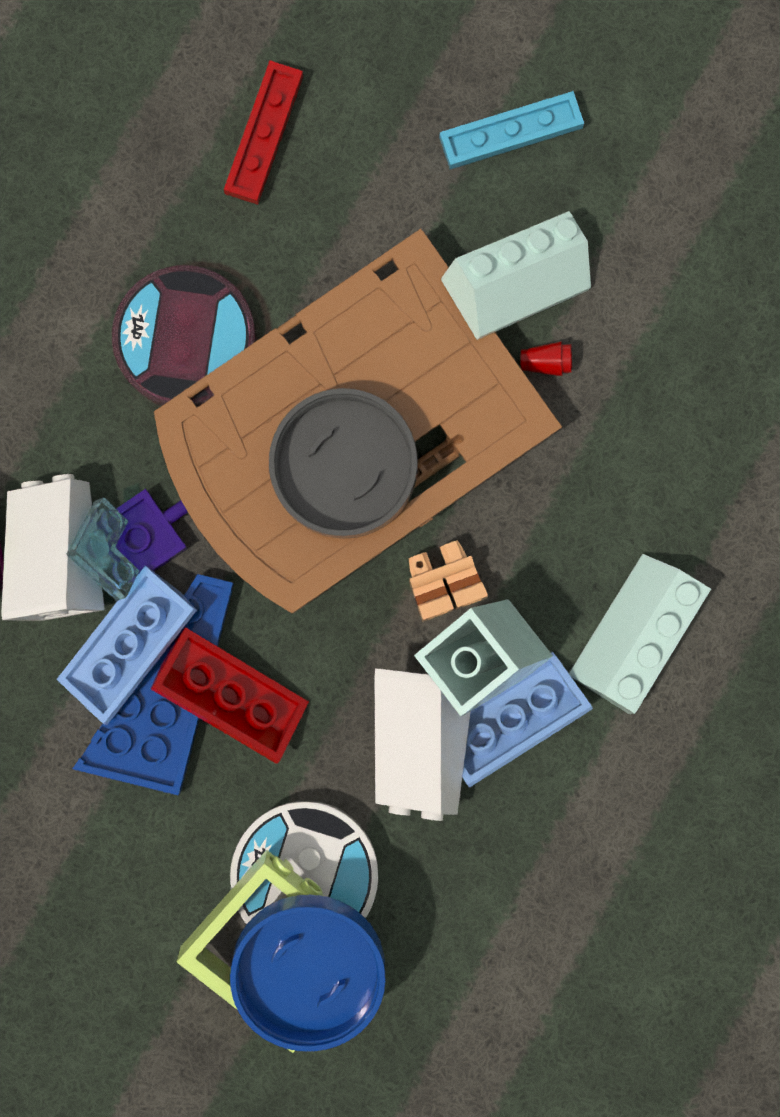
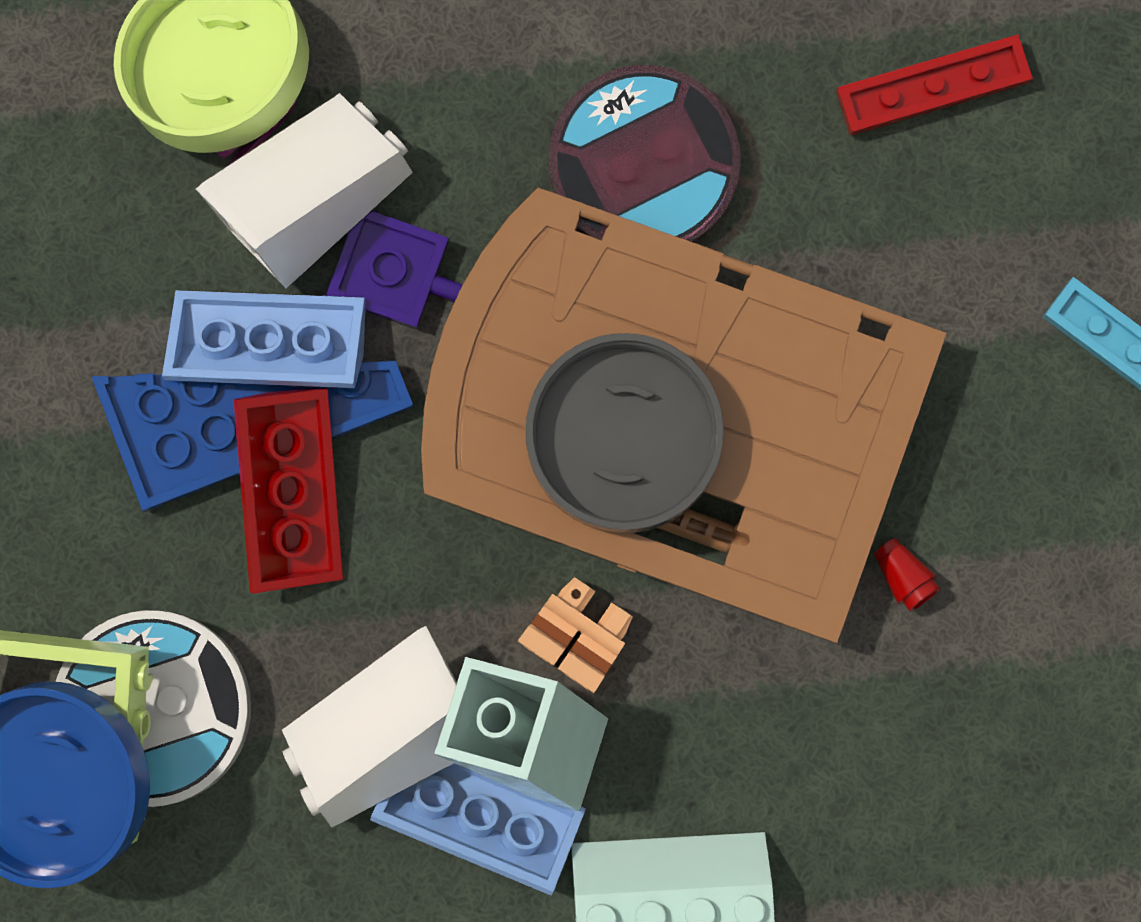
camera: 45 degrees right, 0 degrees up
(96, 551) = (340, 235): clear light blue plate -> none
(520, 275) = (973, 479): light aqua slope -> none

